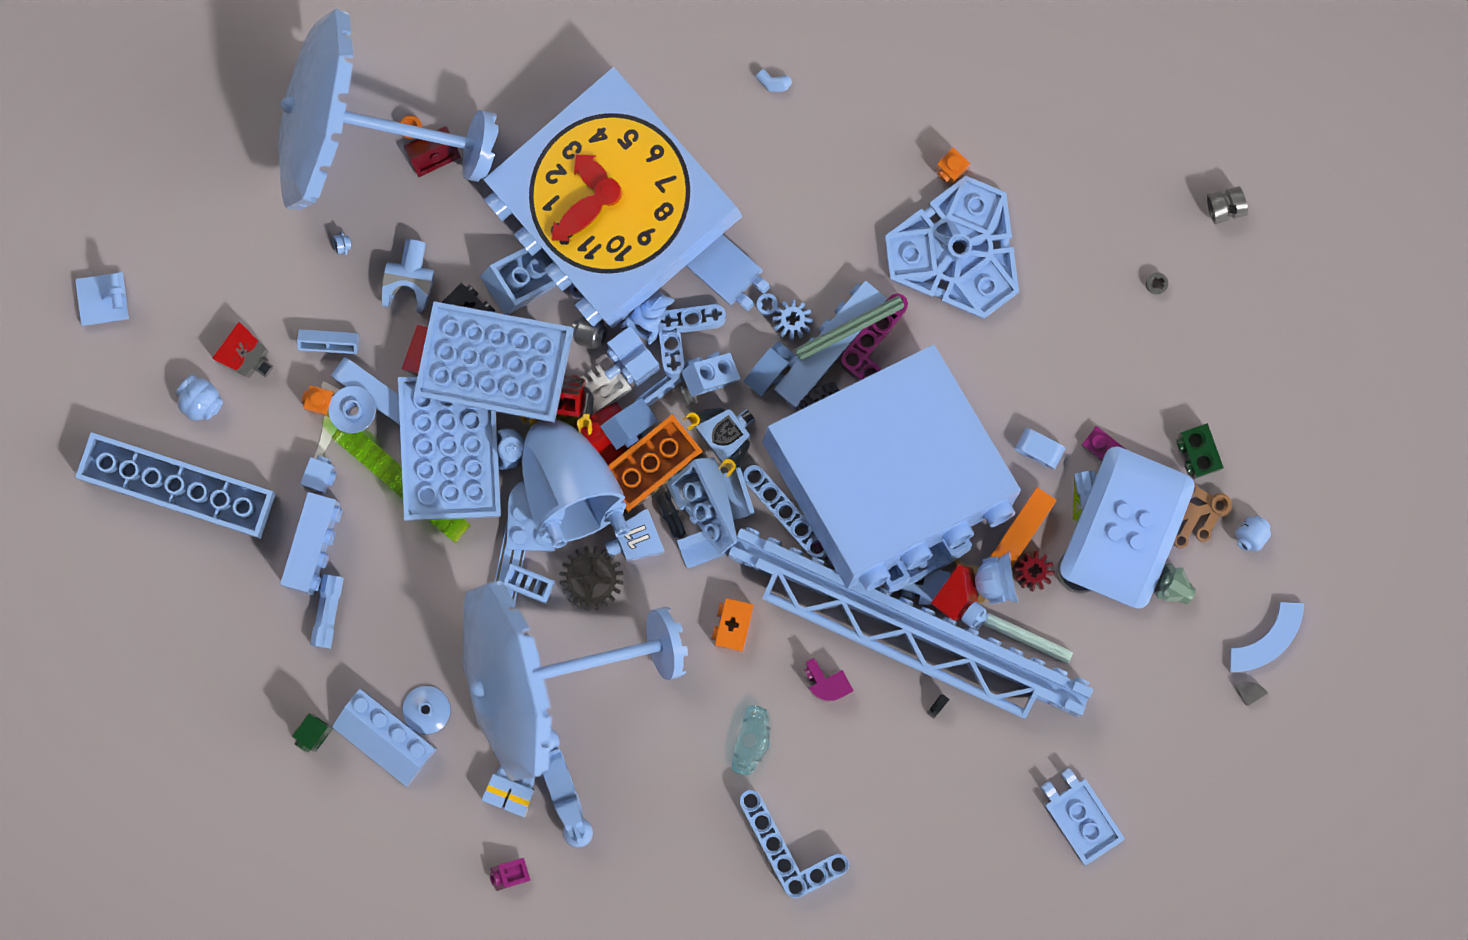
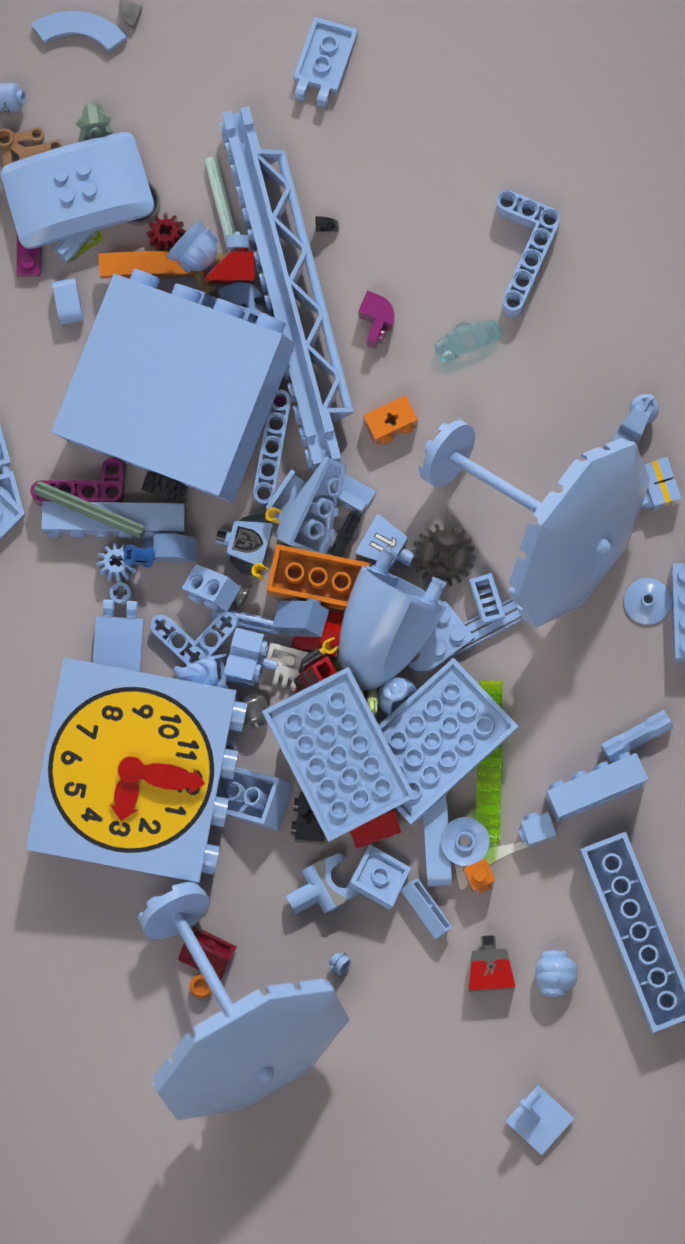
camera: 120 degrees left, 5 degrees down
(380, 324) = (379, 877): none -> light blue plate
(516, 424) = (372, 700): none -> yellowish green pin
(780, 337) = (139, 556): none -> blue bush

